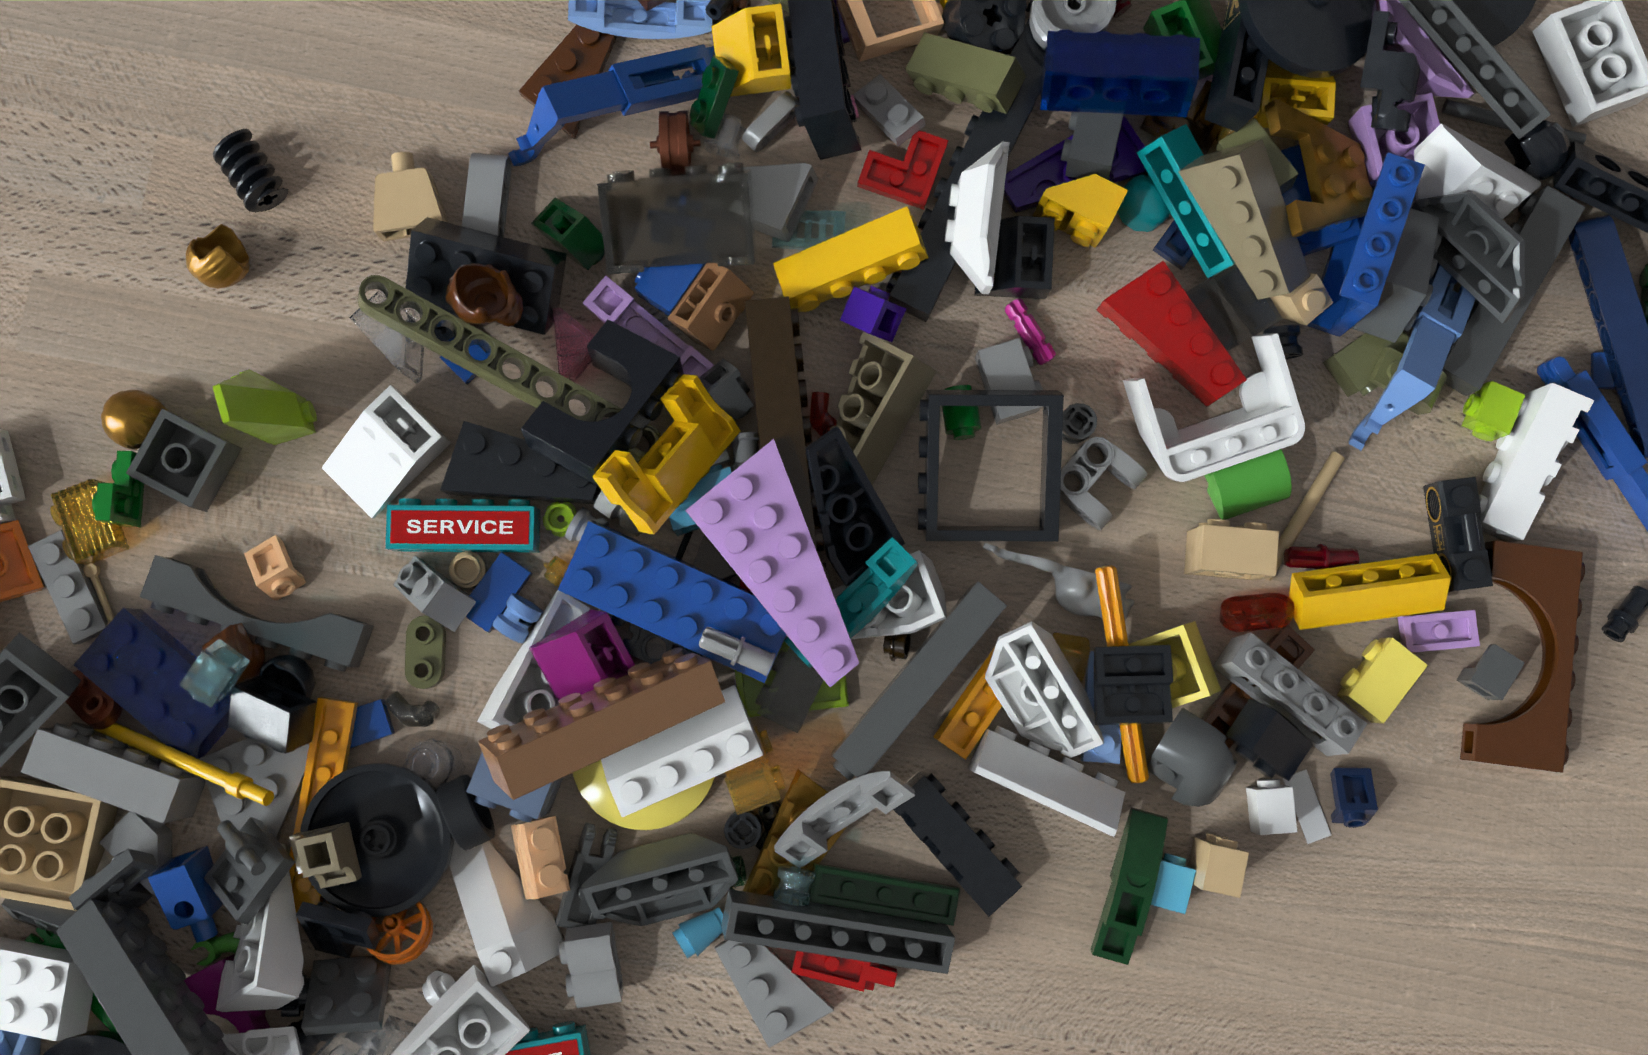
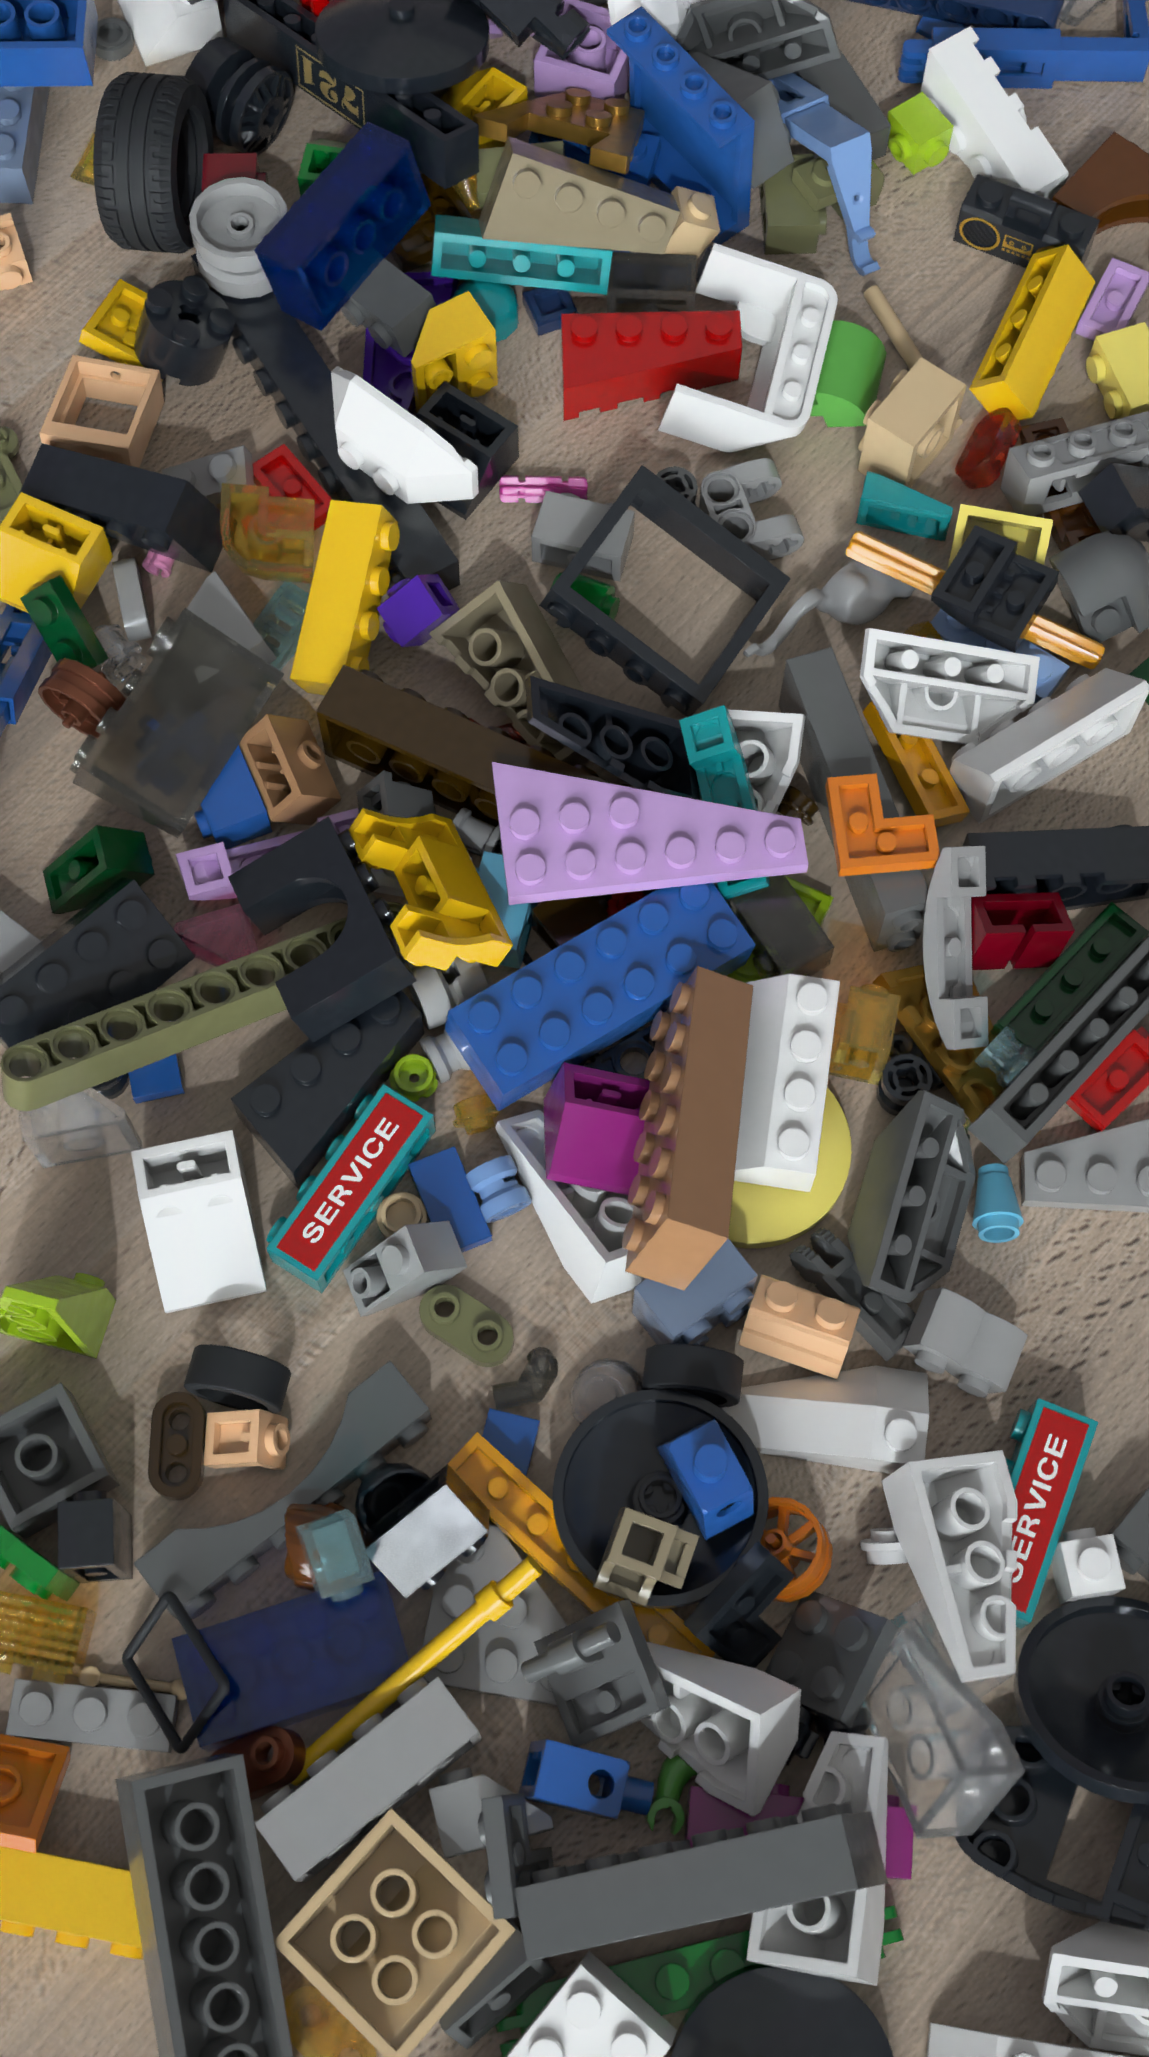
camera: 55 degrees left, 15 degrees down
(70, 654) = (171, 1599): none -> black piece
(154, 524) = (94, 1538): none -> black brick
(247, 528) = (177, 1447): none -> dark brown plate
(298, 541) = (237, 1378): none -> black tyre
(393, 862) = (709, 1478): none -> blue torso
(484, 295) = (110, 966): reddish brown hair -> none
(737, 650) = (703, 938): light grey axle -> none
(861, 180) = (267, 533): none -> clear yellow brick
(871, 715) = (870, 842): none -> orange plate
(891, 843) = (1018, 929): none -> dark red piece
(965, 73) = (227, 379): olive brick -> none
(1166, 575) = (901, 509): none -> teal slope
(1319, 557) = (970, 355): dark red axle -> none

